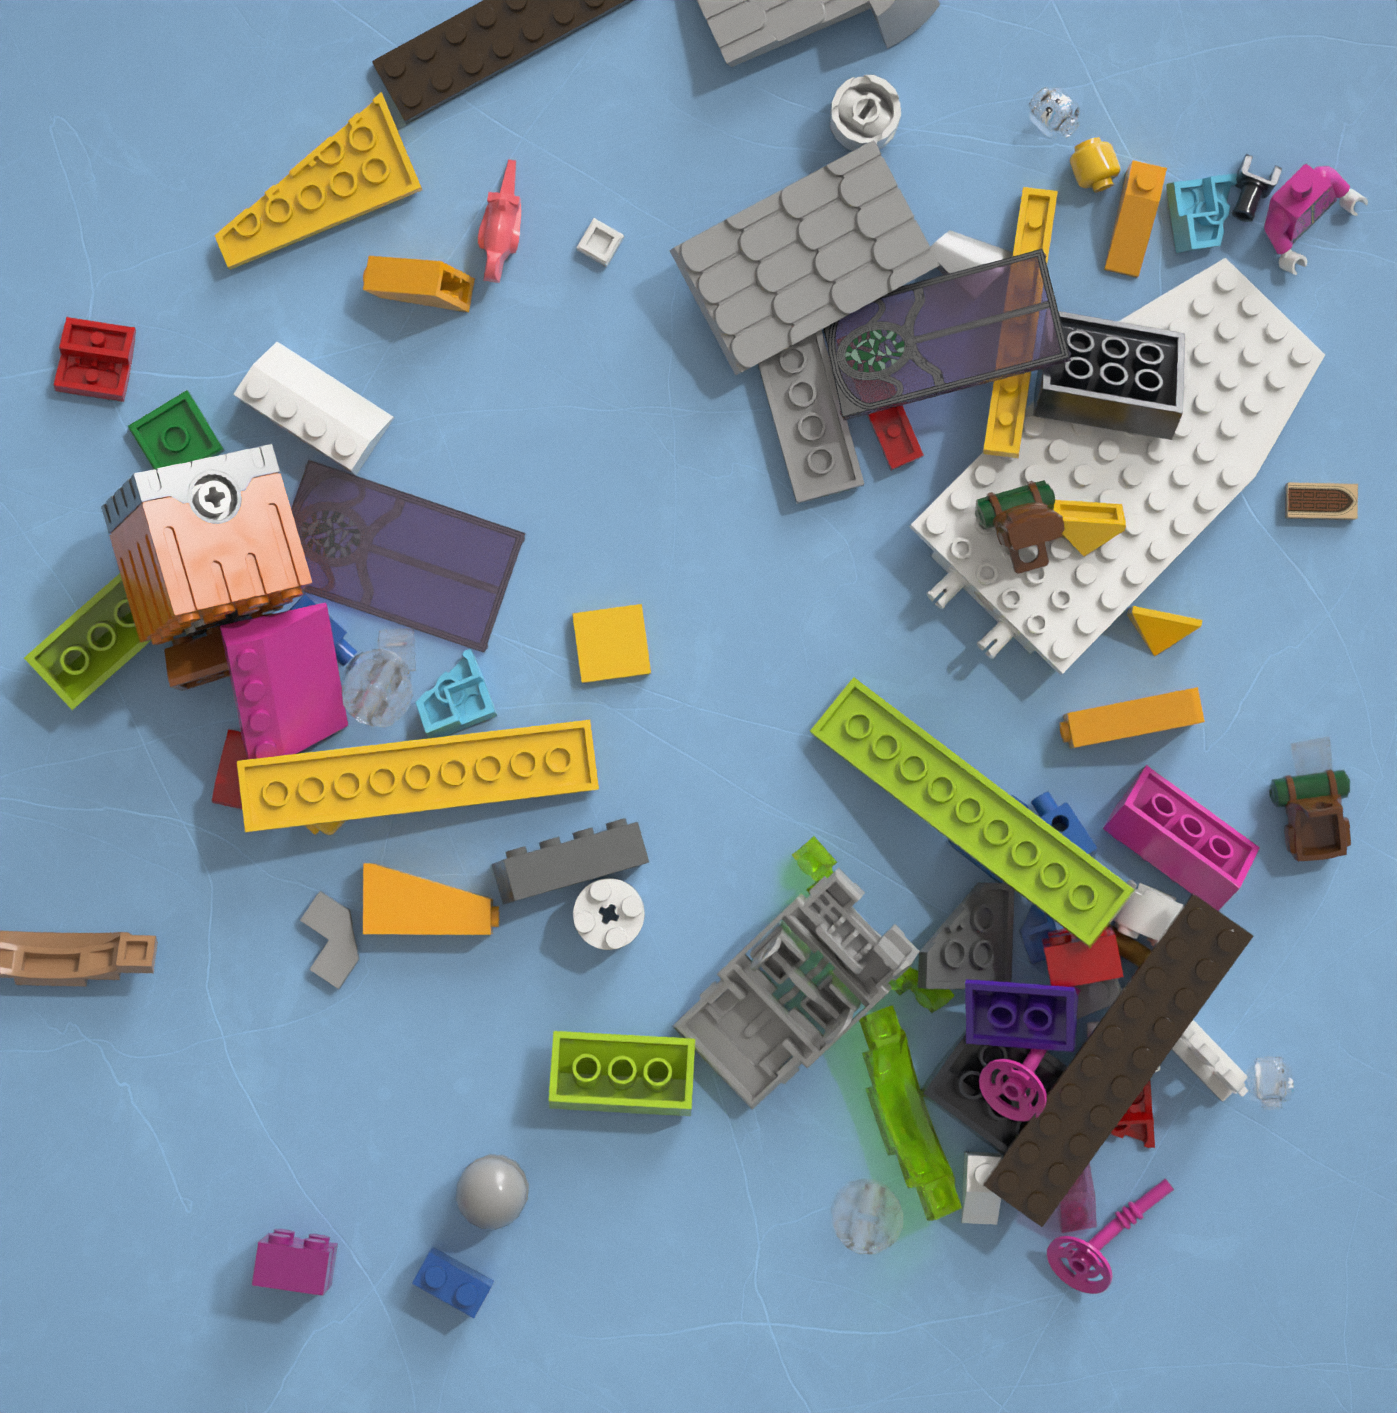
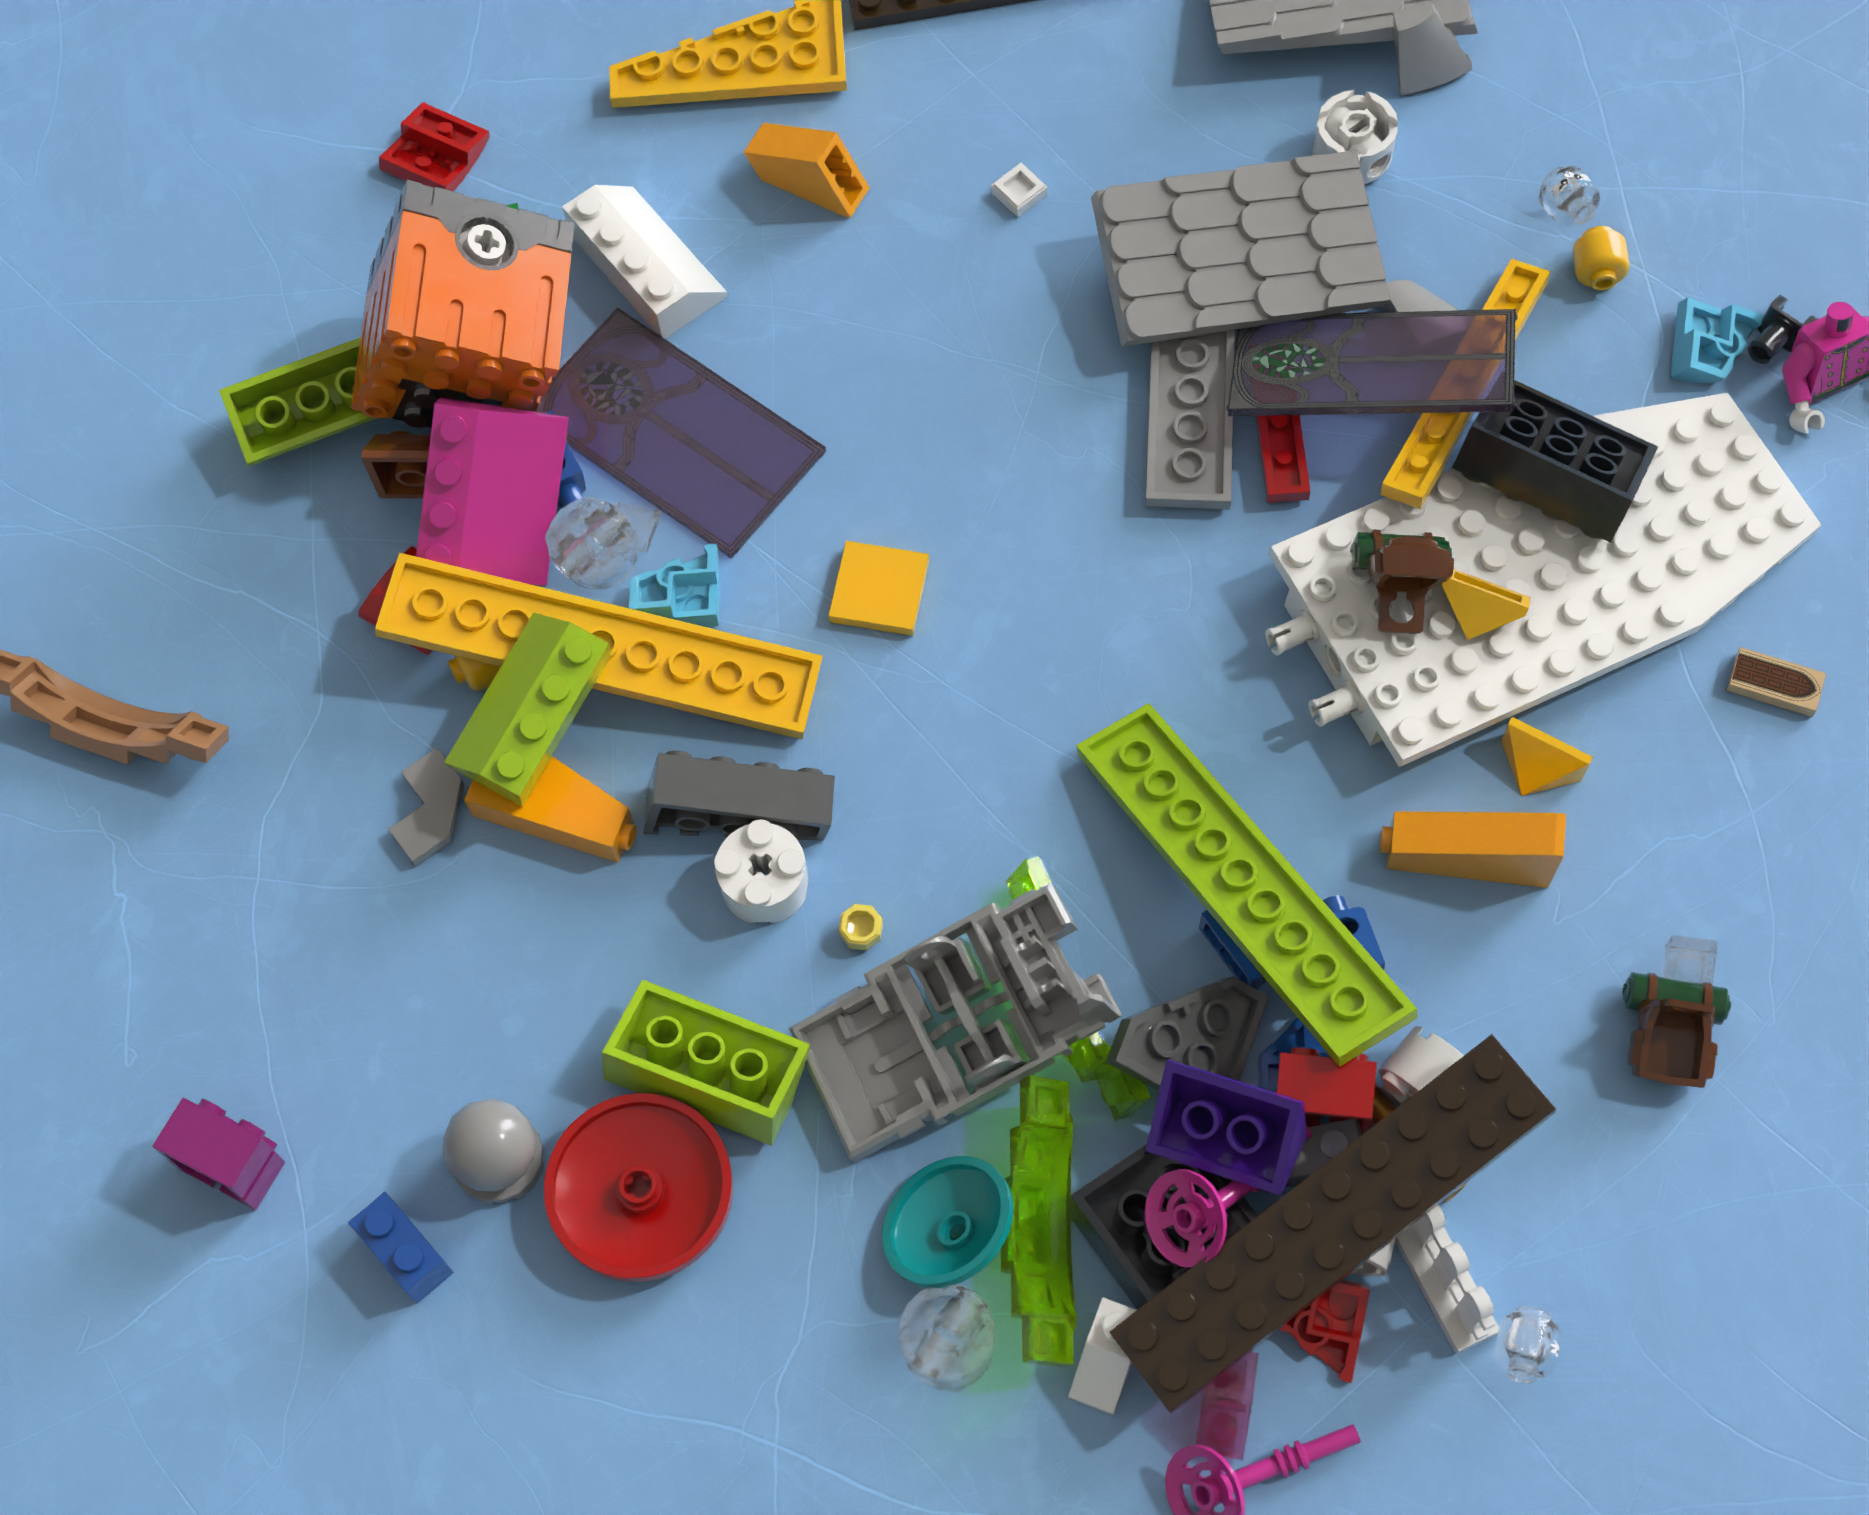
camera: 25 degrees right, 20 degrees down
(387, 853) = (529, 706): none -> lime slope
(500, 225) = (916, 142): coral animal -> none
(608, 1183) = (638, 1187): none -> red dish
(696, 928) = (860, 927): none -> light yellow tile
(821, 1133) = (935, 1210): none -> teal dish
(1135, 218) = (1632, 322): light orange slope -> none
(1181, 838) = (1487, 993): dark pink slope -> none

